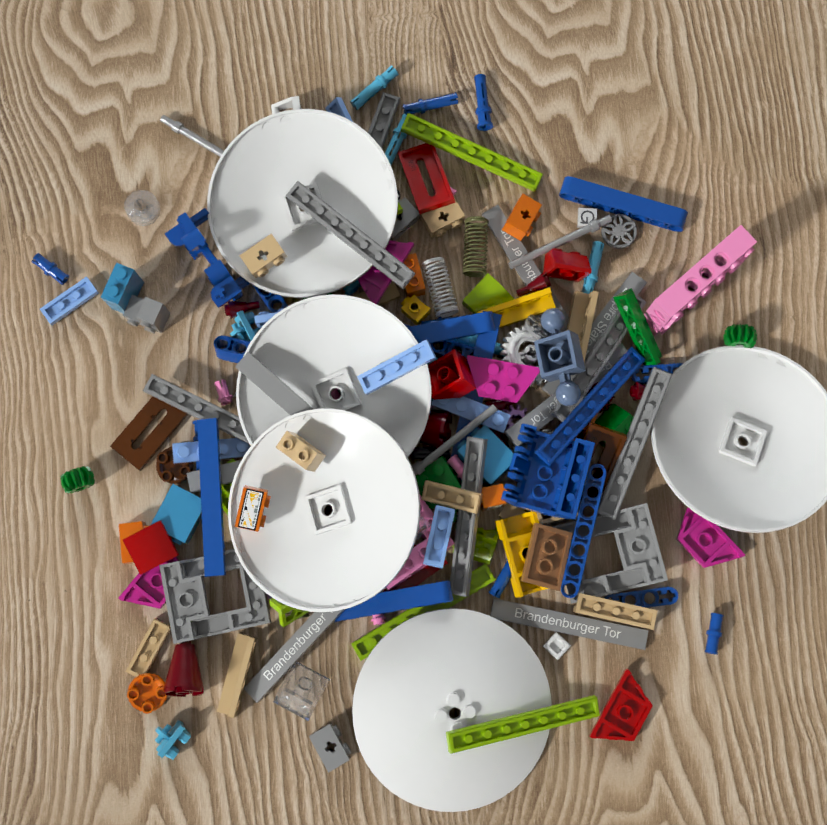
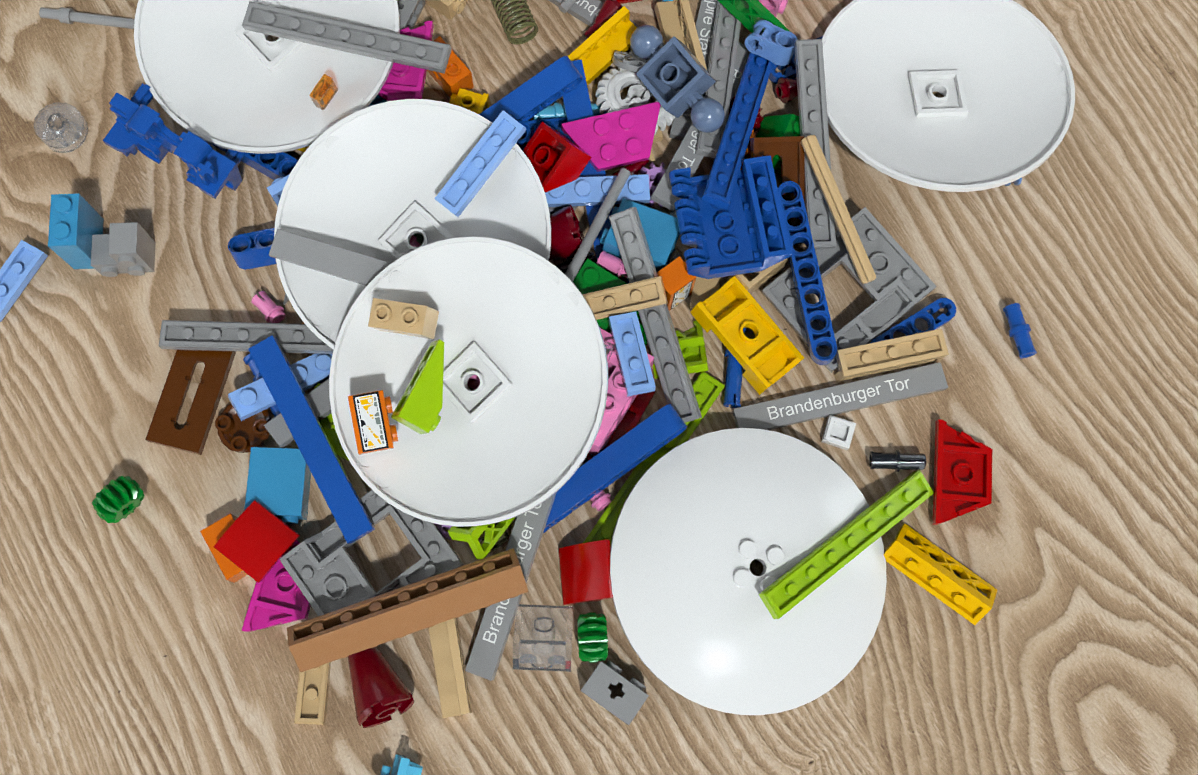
camera: 30 degrees left, 5 degrees down
(146, 692) = (336, 737): orange dish -> none
(223, 637) = (406, 610): none -> medium nougat brick
(235, 306) = (240, 198): dark red cone -> none
(242, 326) = (258, 213): medium azure hips -> none
(254, 260) = (245, 106): tan brick -> none
(290, 508) = (424, 394): none -> lime slope
(319, 266) = (323, 92): none -> clear orange tile
(331, 706) = (592, 637): none -> green gear
(346, 662) = (585, 572): none -> red slope
(443, 309) = (470, 49): white piece -> none
(486, 295) = (547, 49): lime slope -> none
(546, 556) = (776, 323): medium nougat plate -> none
(574, 773) = (938, 576): none -> yellow fence
(585, 683) = (897, 460): none -> black axle
(626, 497) = (838, 209): none -> tan axle
(639, 356) = (774, 43): none -> medium blue piece
(706, 541) = (952, 224): dark pink wing -> none

